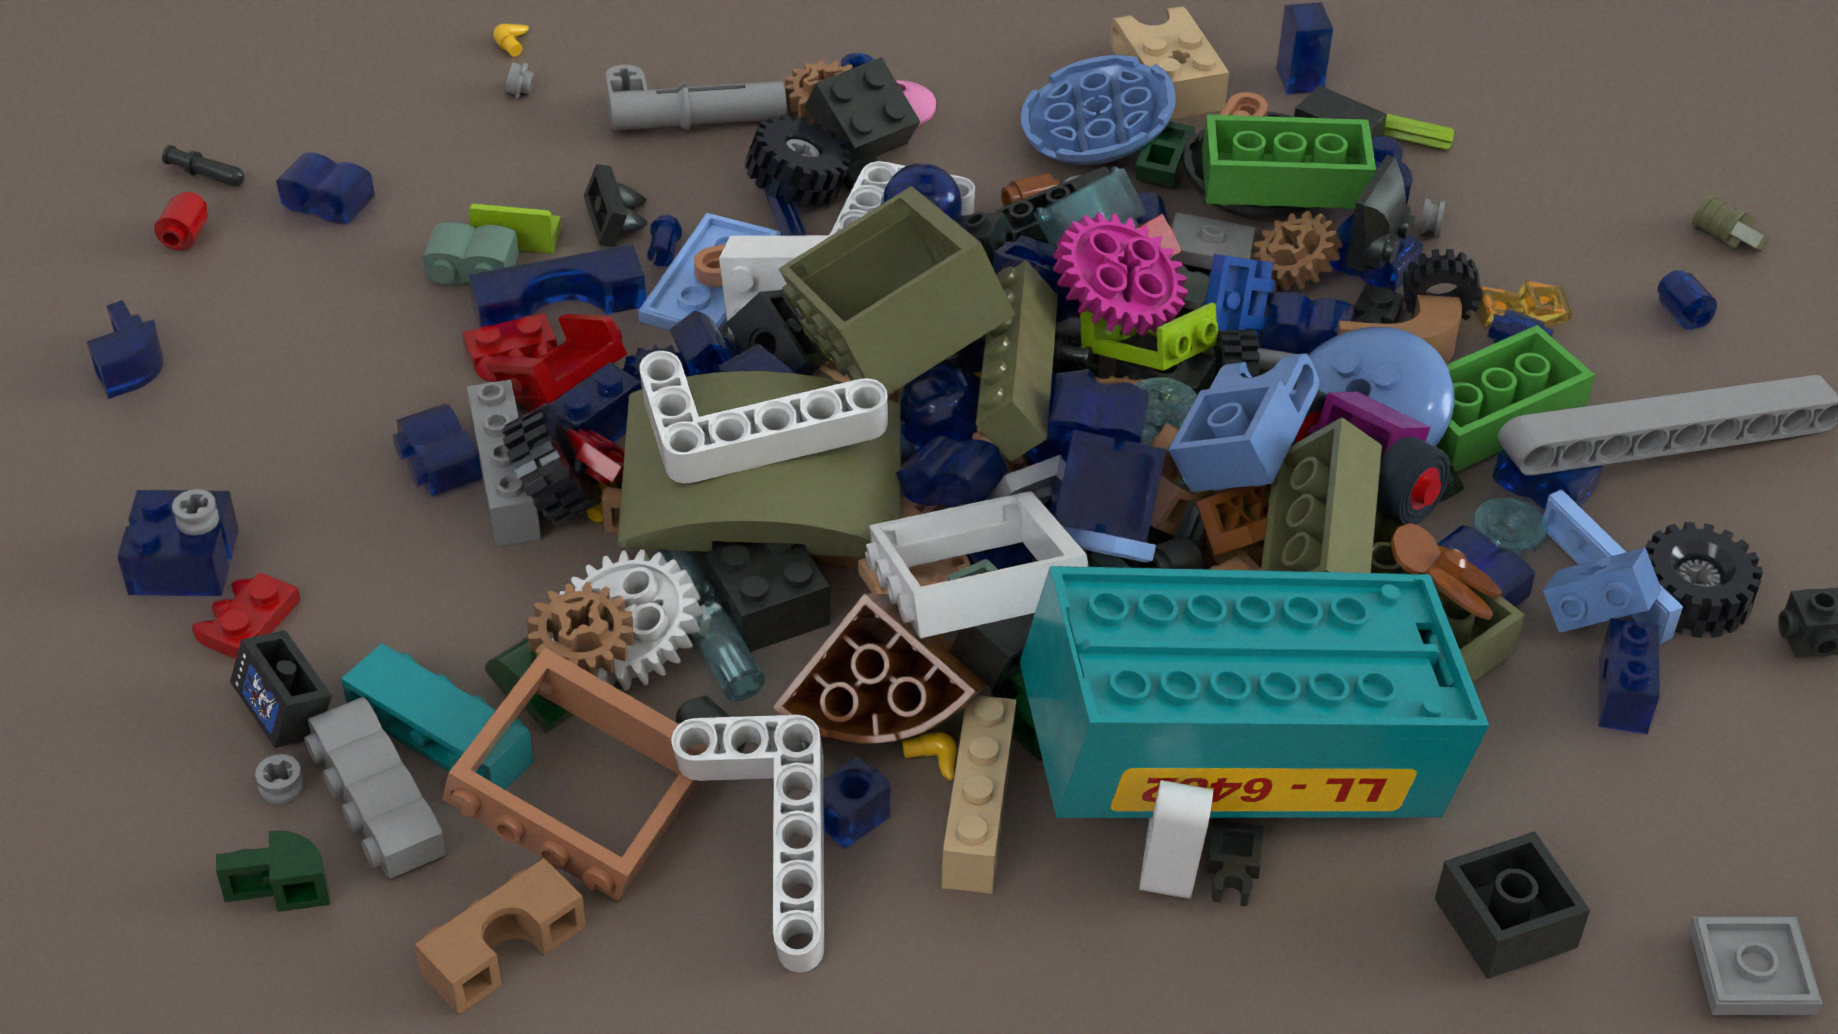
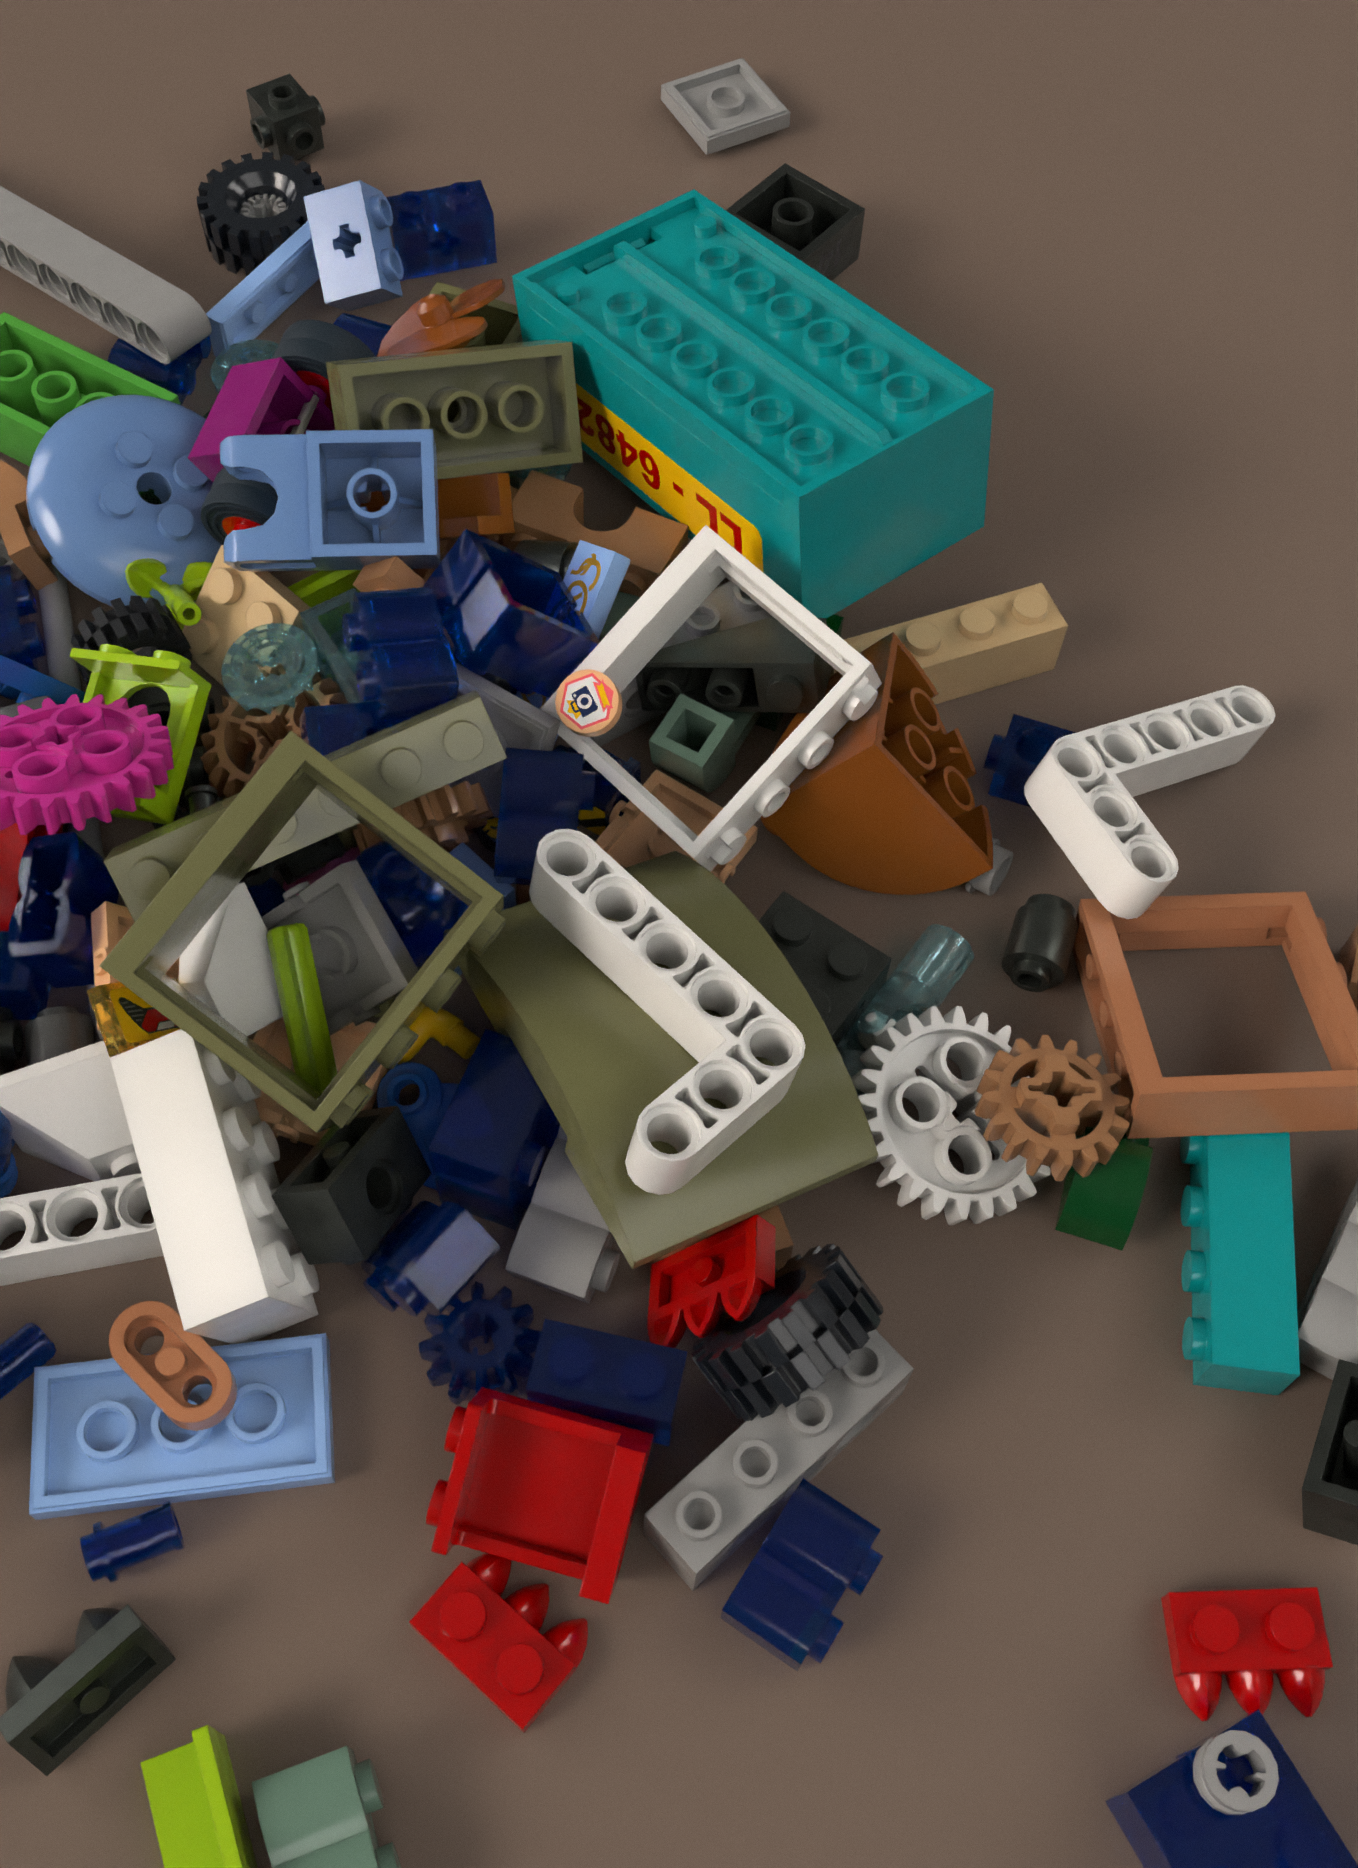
camera: 120 degrees left, 15 degrees up
(603, 278) = (411, 1699): clear blue arch -> none
(1009, 499) = (588, 703): none -> tile

